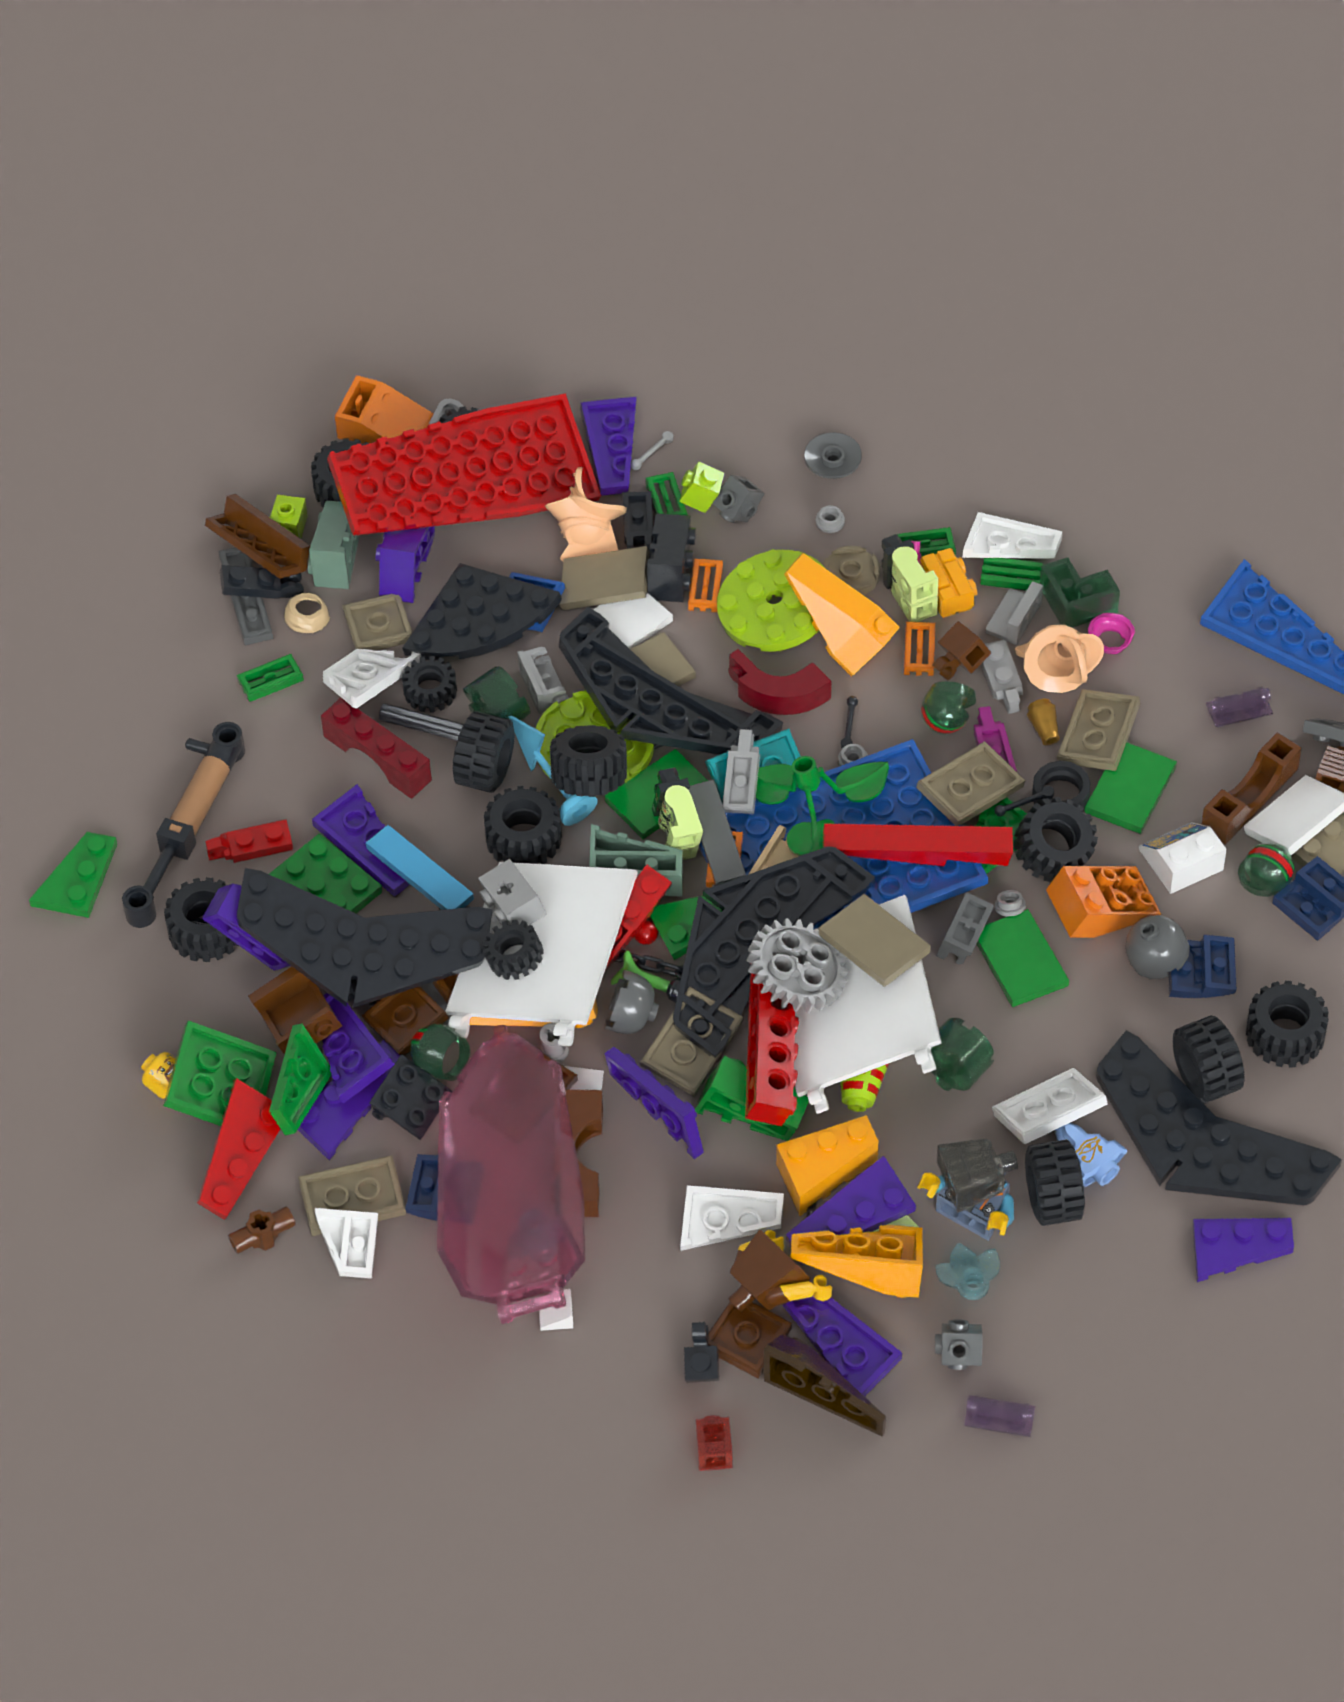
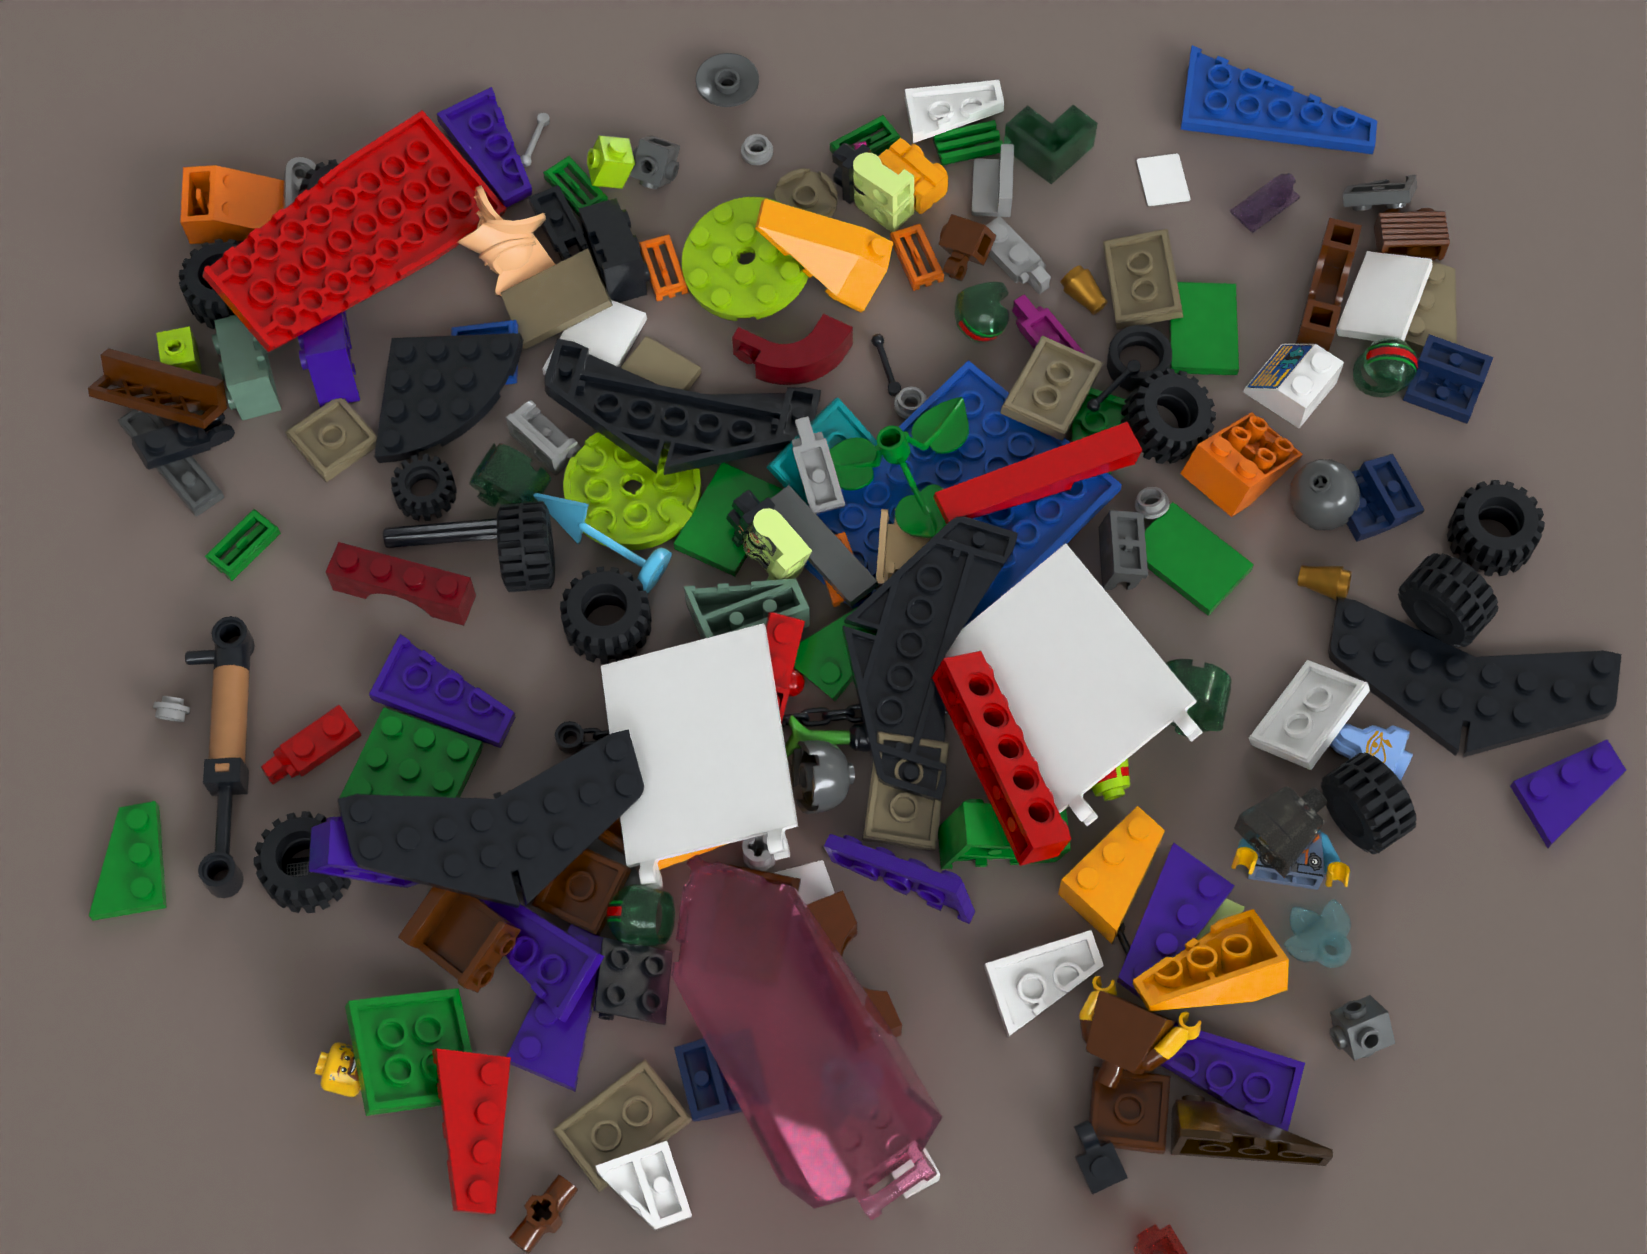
camera: 25 degrees left, 10 degrees up
(158, 776) = (171, 709): none -> light grey plate
(300, 1080) = (508, 1019): green wing -> none
(306, 623) = (249, 468): tan piece -> none
(365, 674) = (351, 503): white wing -> none
(419, 870) = (519, 710): dark azure tile -> none
(510, 895) = (628, 691): light grey brick -> none
(519, 961) = (663, 751): black tyre -> none
(588, 760) = (647, 515): black tyre -> none
(797, 965) = (996, 669): light grey gear -> none
(874, 940) = (1065, 610): dark tan tile -> none
(999, 1415) = (1437, 1089): clear purple hinge -> none
(1060, 658) = (1069, 216): light nougat helmet -> none
(1116, 623) = (1102, 158): dark pink piece -> none
(1123, 1014) = (1326, 580): none -> pearl gold cone
(1164, 660) = (1163, 179): none -> white sticker

